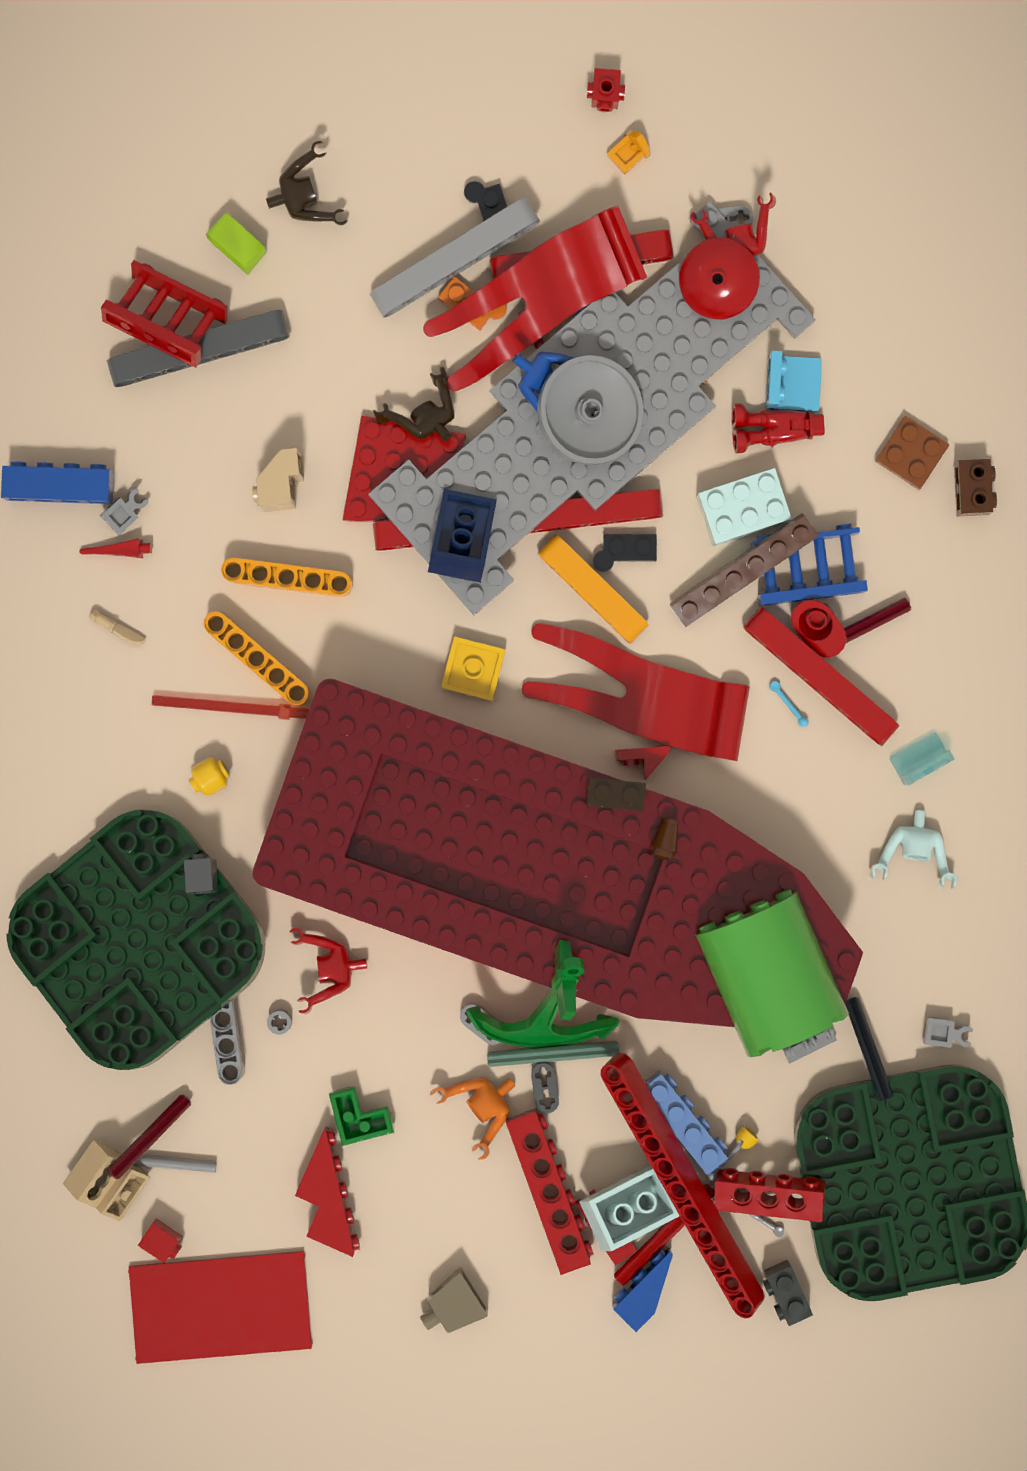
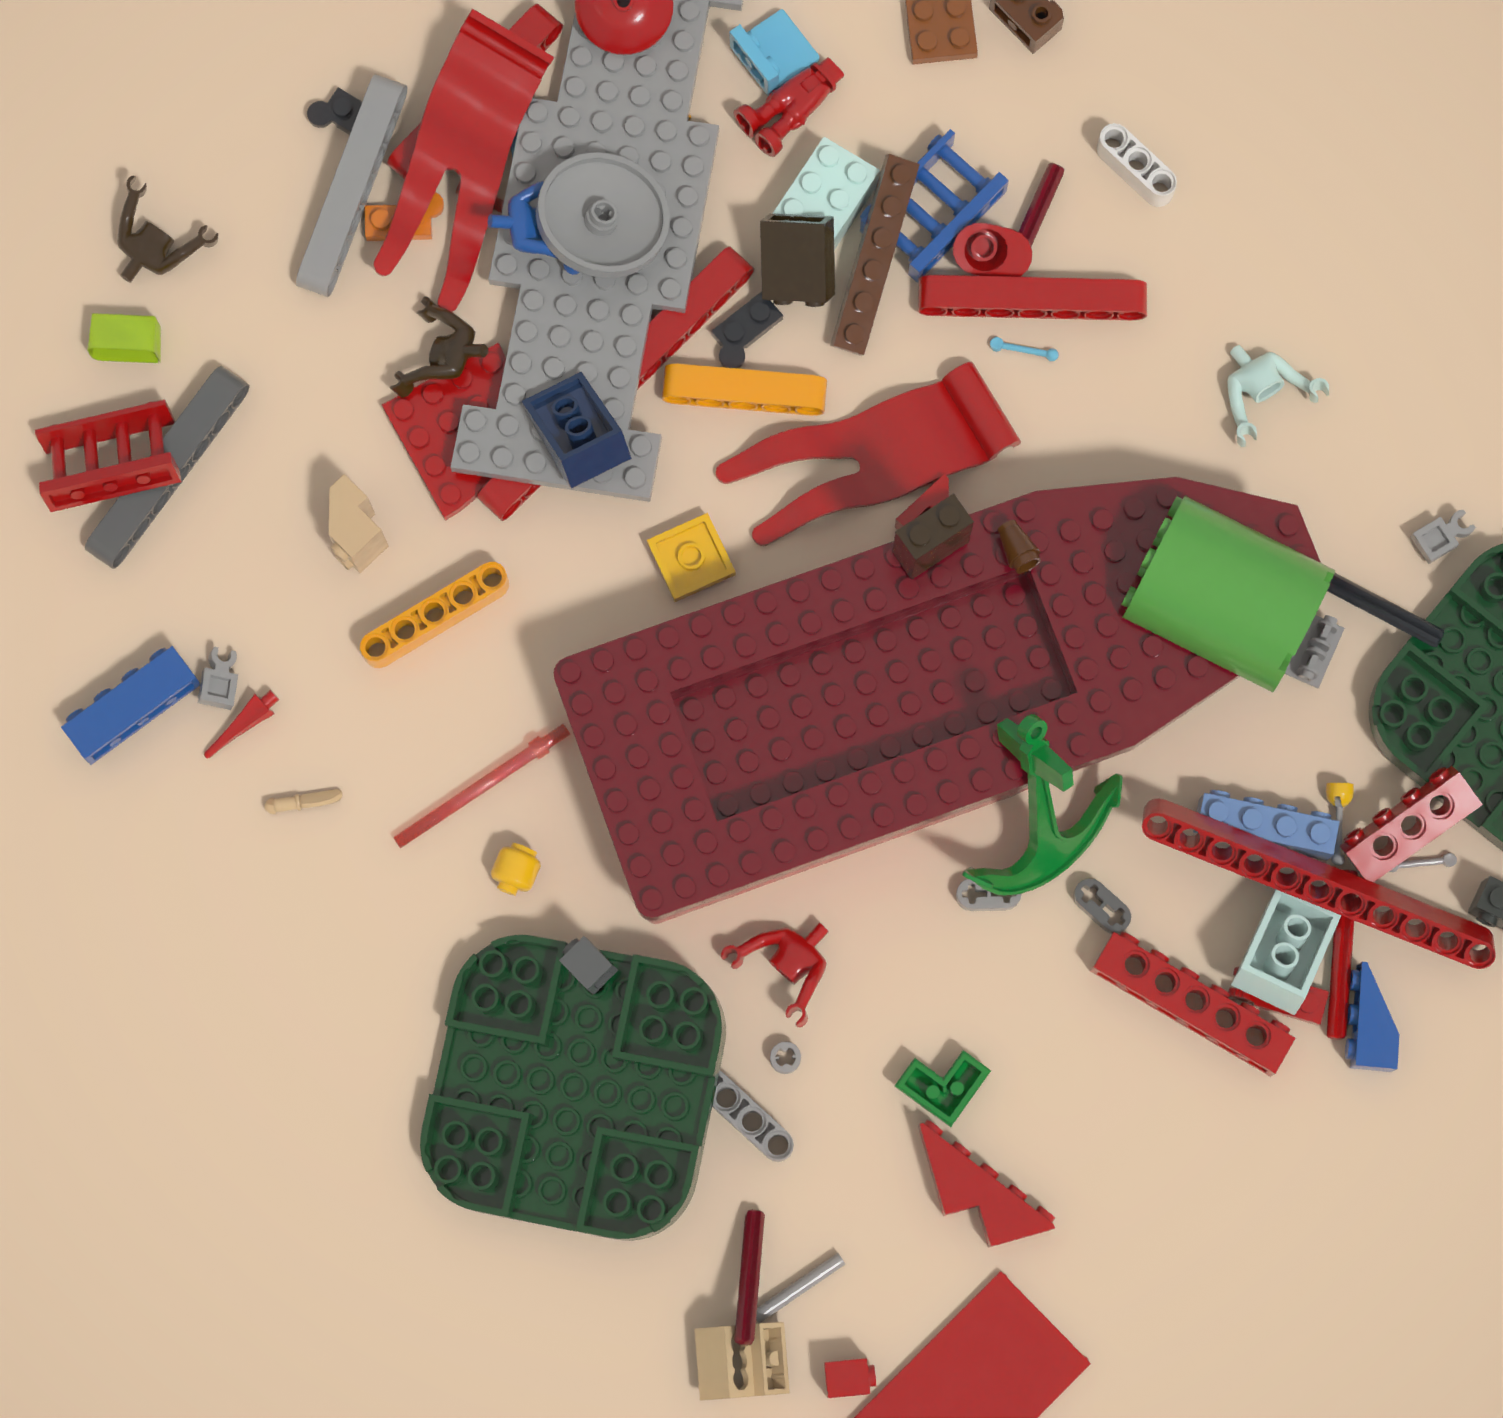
camera: 40 degrees left, 10 degrees down
(244, 655) = (455, 707): light orange beam -> none
(454, 1304) = (1195, 1195): dark tan torso -> none
(484, 1103) = (1056, 970): orange piece -> none
(552, 1054) = (1081, 867): sand green axle -> none
(692, 534) = (797, 259): none -> dark brown brick
(921, 759) = (1193, 300): clear light blue panel -> none
(964, 632) = (1133, 150): none -> white beam

